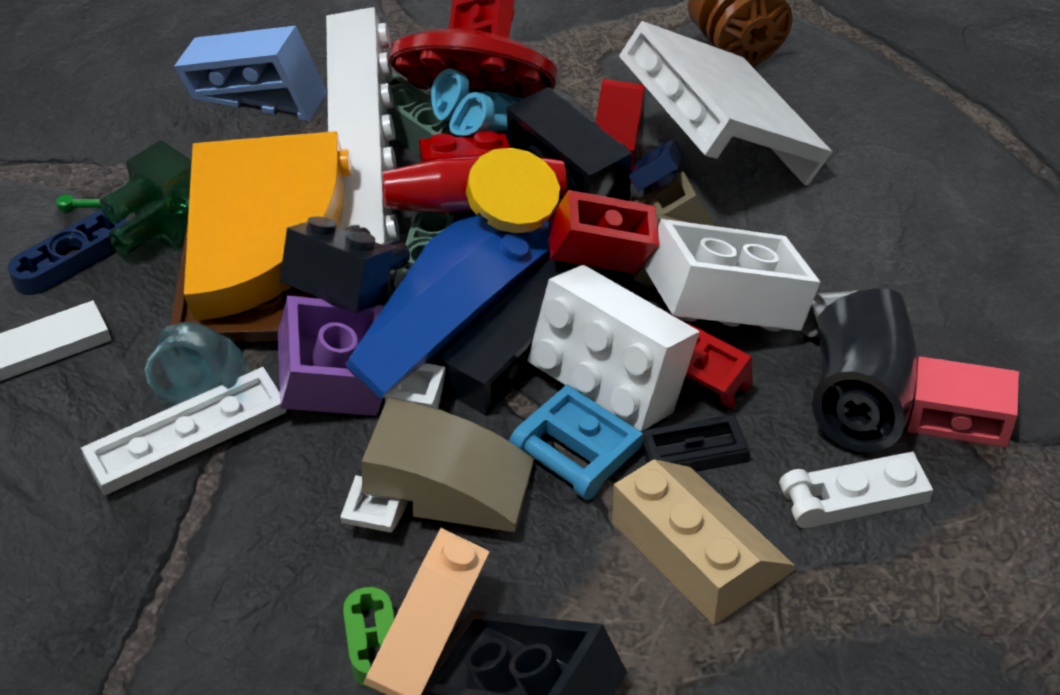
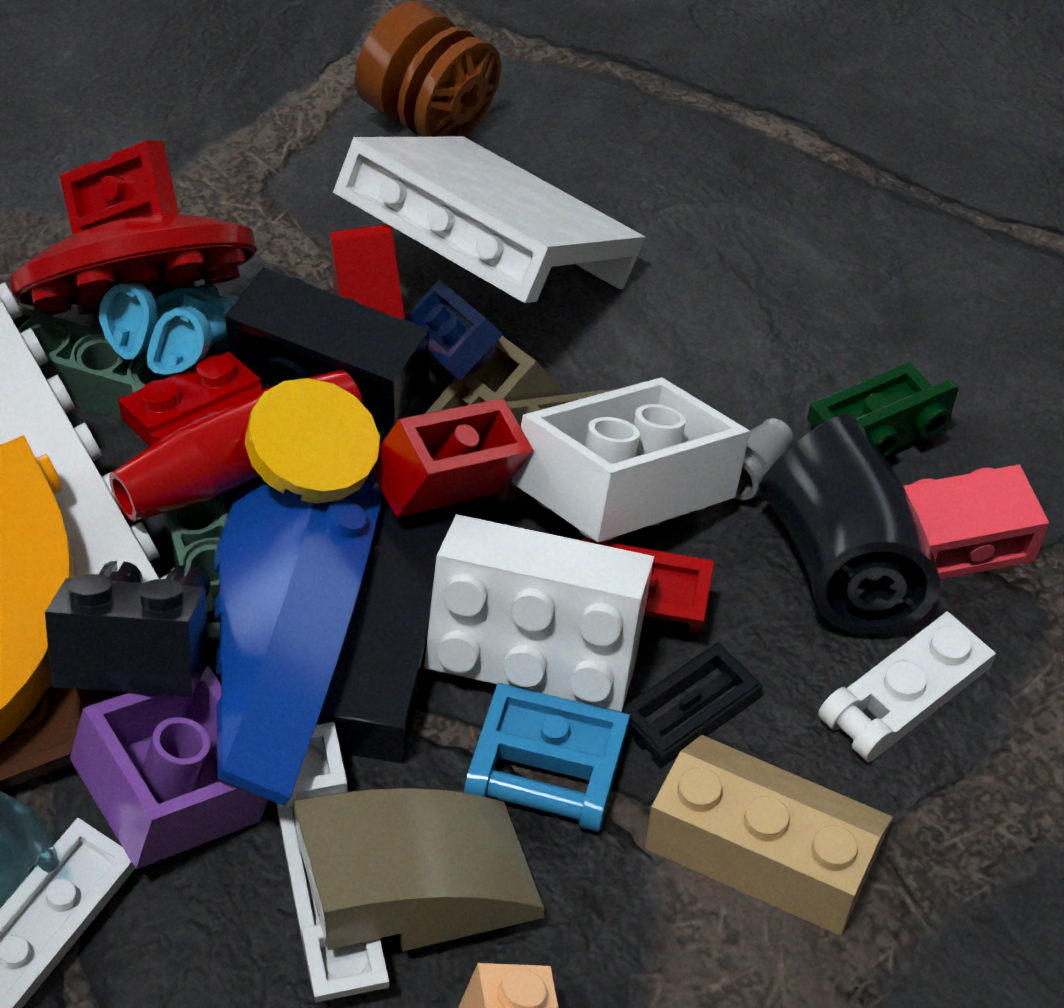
camera: 30 degrees left, 5 degrees up
(950, 313) = (892, 406): none -> dark green bracket

